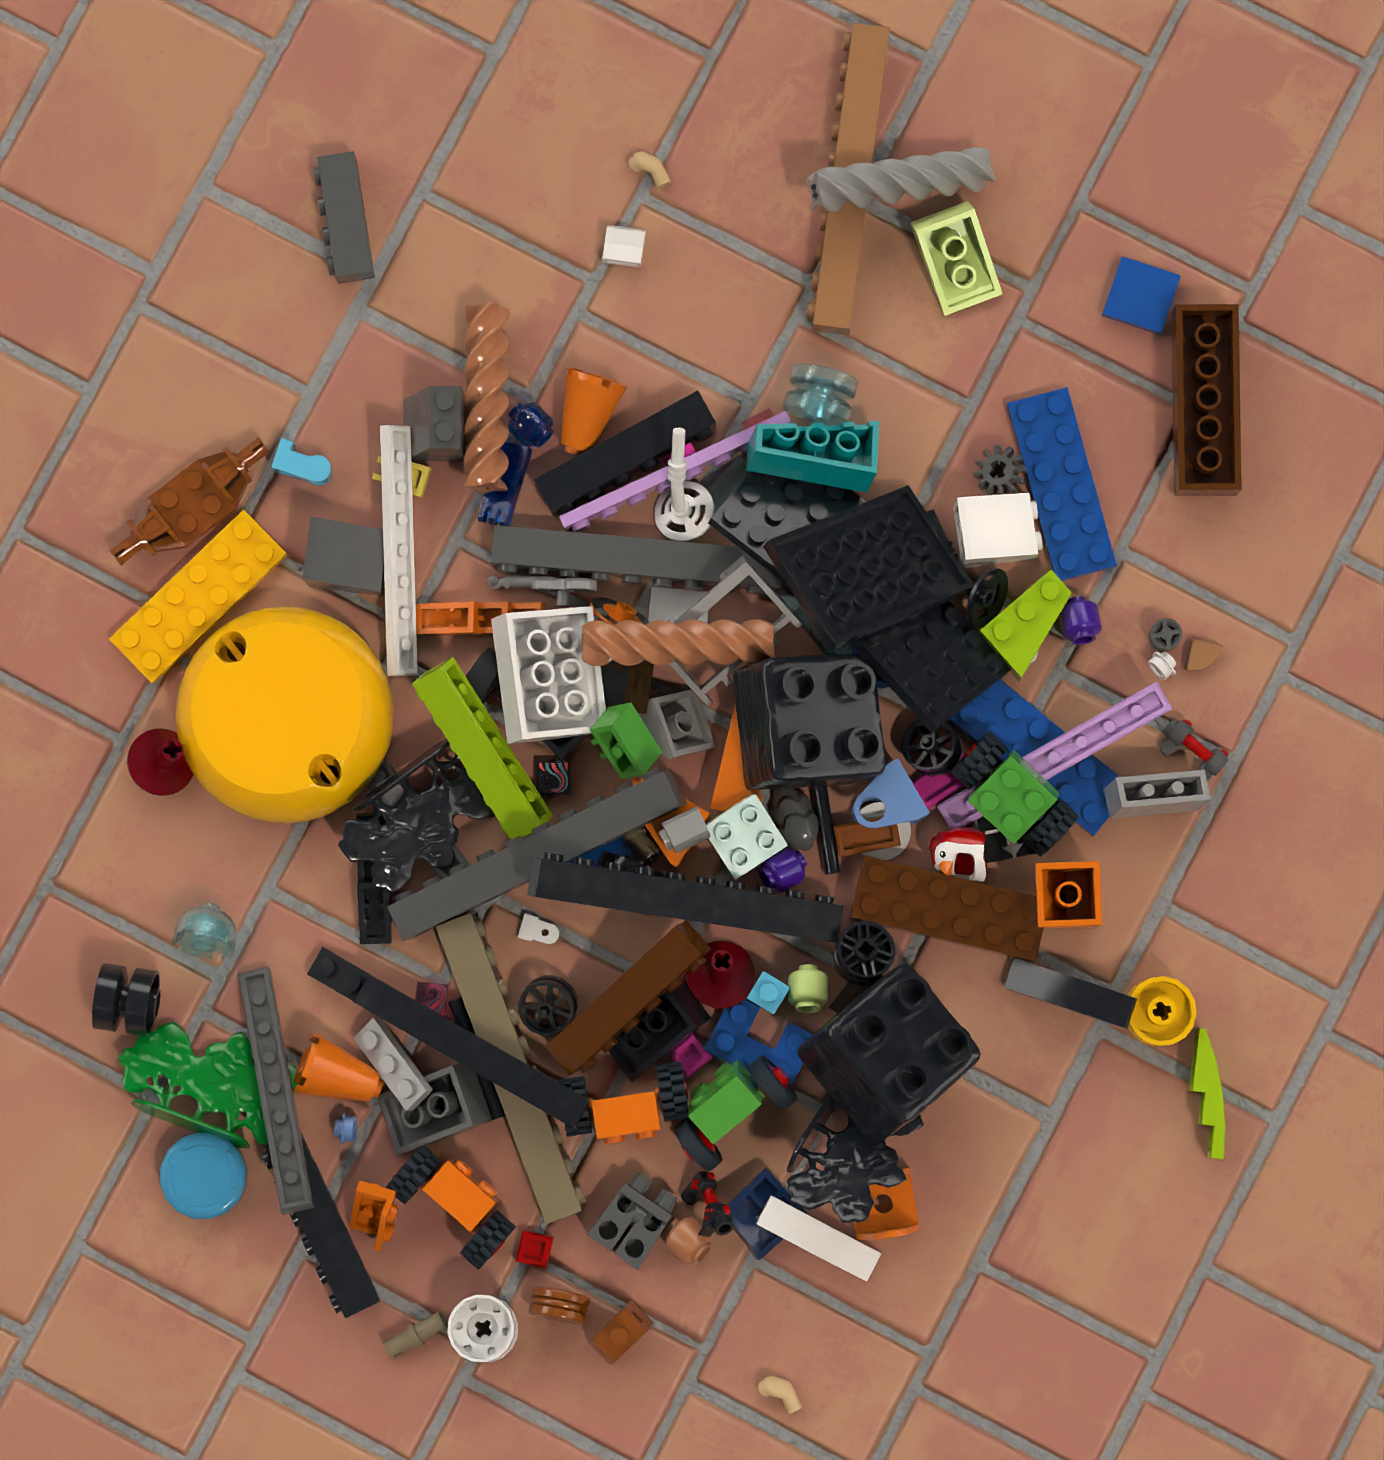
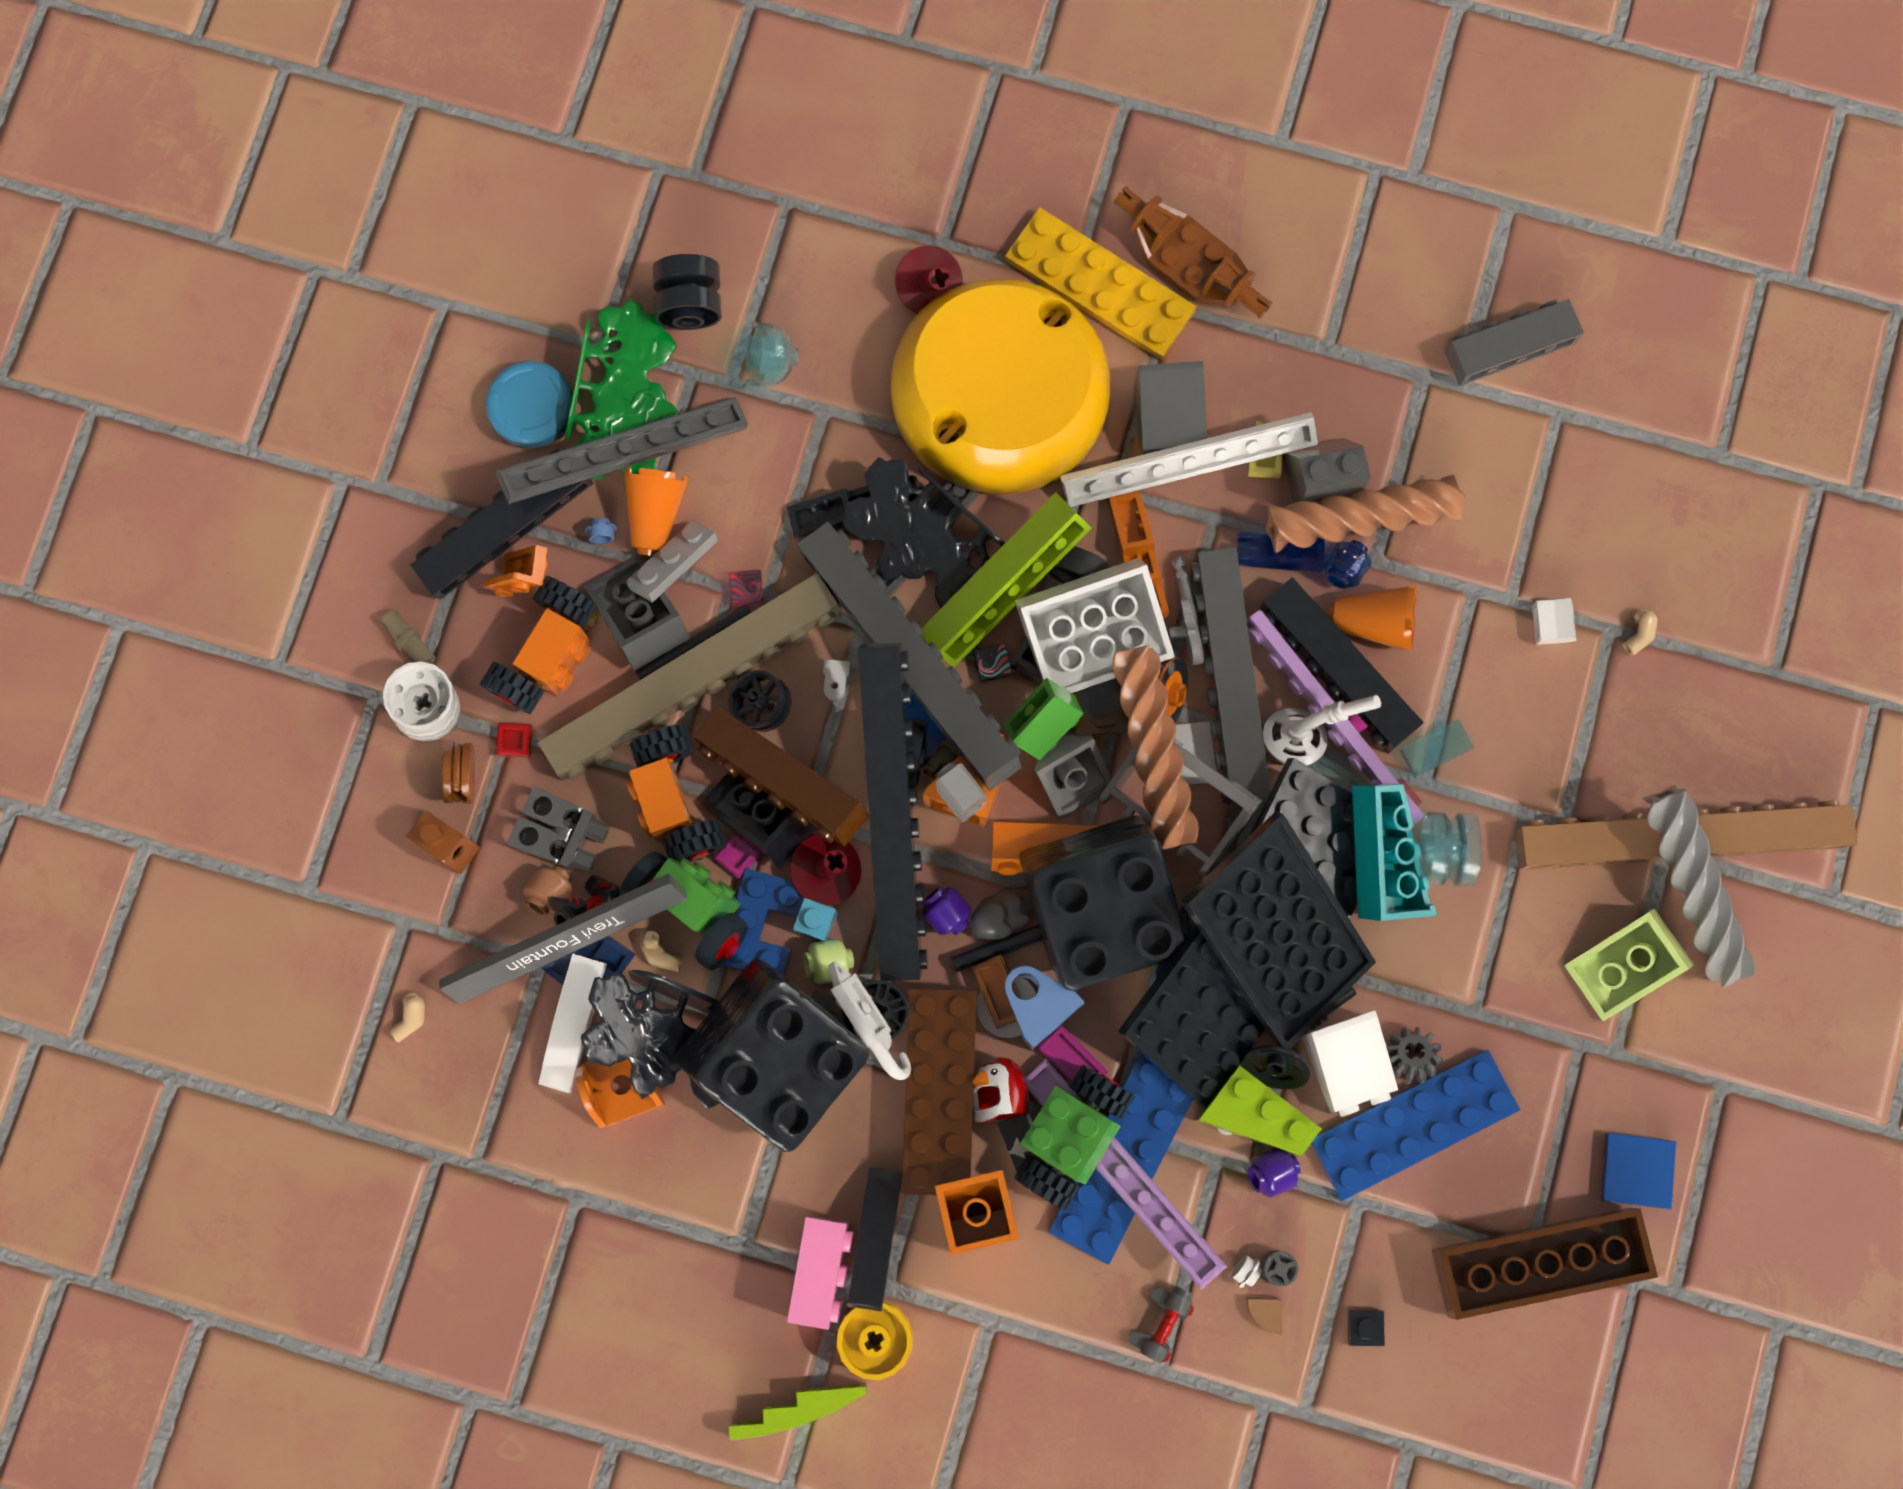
camera: 75 degrees right, 5 degrees down
(306, 468) = (1251, 361): medium azure leg -> none
(449, 1038) = (705, 609): black slope -> none
(721, 383) = (1436, 748): none -> clear light blue tile
(742, 1230) = (563, 939): none -> dark grey tile
(745, 836) = (971, 862): light aqua bracket -> none
(769, 1148) = (656, 953): none -> tan arm
(874, 960) = (866, 1019): none -> white plate
(931, 747) = (1105, 1040): black wheel -> none
(1091, 1048) = (820, 1273): none -> bright pink brick
(1157, 794) = (1106, 1291): light grey brick -> none
(1231, 570) = (1366, 1328): none -> black plate

